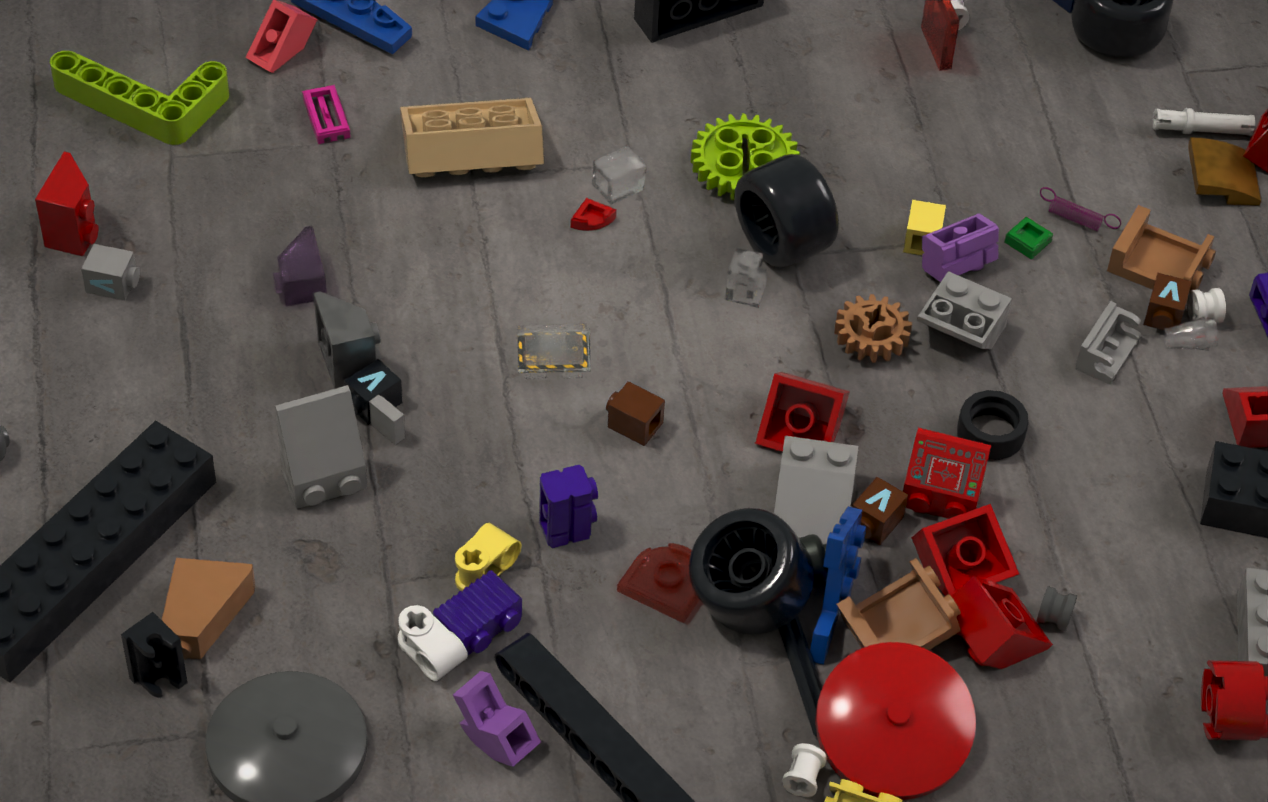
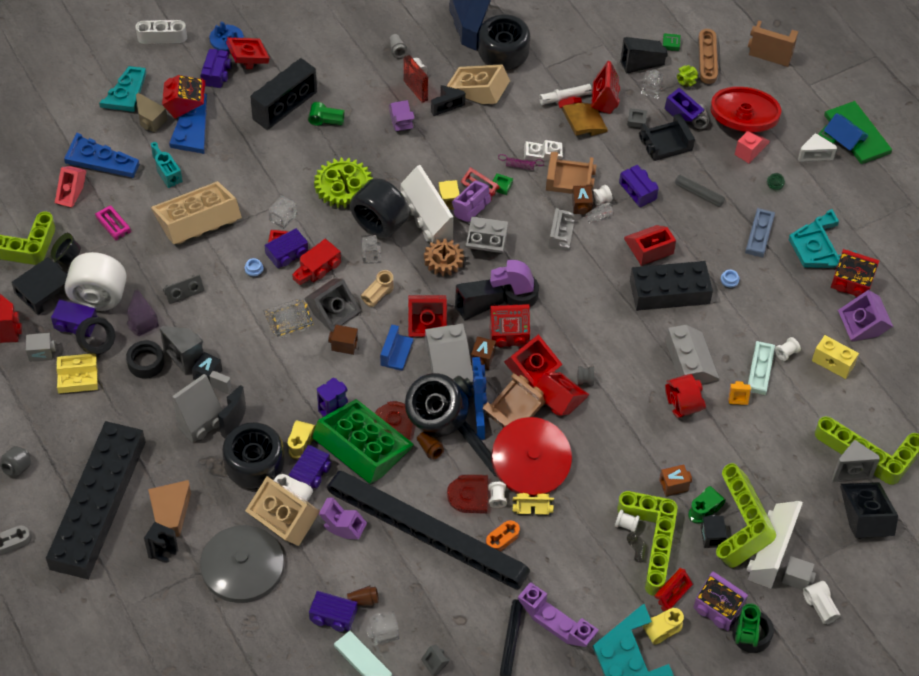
camera: 20 degrees left, 5 degrees up
(153, 333) = (77, 373): none -> light yellow slope
(161, 173) = (40, 284): none -> black panel
(189, 243) = (69, 315): none -> dark purple brick
(227, 134) = (65, 249): none -> black piece
(234, 284) = (110, 332): none -> black tyre
(245, 191) = (95, 281): none -> white wheel
(279, 364) = (145, 347): none -> black tyre
(382, 476) = (233, 414): none -> black slope
(384, 557) = (252, 454): none -> black wheel
(394, 250) = (183, 289): none -> dark grey hinge
(394, 672) = (282, 511): none -> tan slope
(453, 50) = (166, 166): none -> teal piece
(530, 250) = (253, 267): none -> light blue plate
(590, 597) = (360, 442): none -> green slope
(600, 234) = (286, 248): none -> dark purple brick
(642, 347) = (333, 303): none -> flat silver slope
(643, 272) = (317, 262): none -> red hinge
(715, 644) = (431, 446): none -> reddish brown cone
(721, 457) = (395, 349): none -> blue panel
(742, 343) = (378, 289): none -> tan piece
(753, 38) = (321, 114): none -> green piece
(753, 752) = (469, 494): none -> clear red tile
(874, 234) = (427, 207): none -> white slope
(891, 76) = (401, 115): none -> medium lavender brick
(899, 406) = (477, 297): none -> black slope
(987, 77) = (449, 99): none -> black slope
(989, 388) = (516, 274): none -> medium lavender brick
(1004, 244) = (467, 176): none -> red tile
(1054, 63) = (481, 83): none -> tan slope
(1114, 200) = (536, 151): none -> white slope
(1209, 132) = (572, 100): none -> red tile

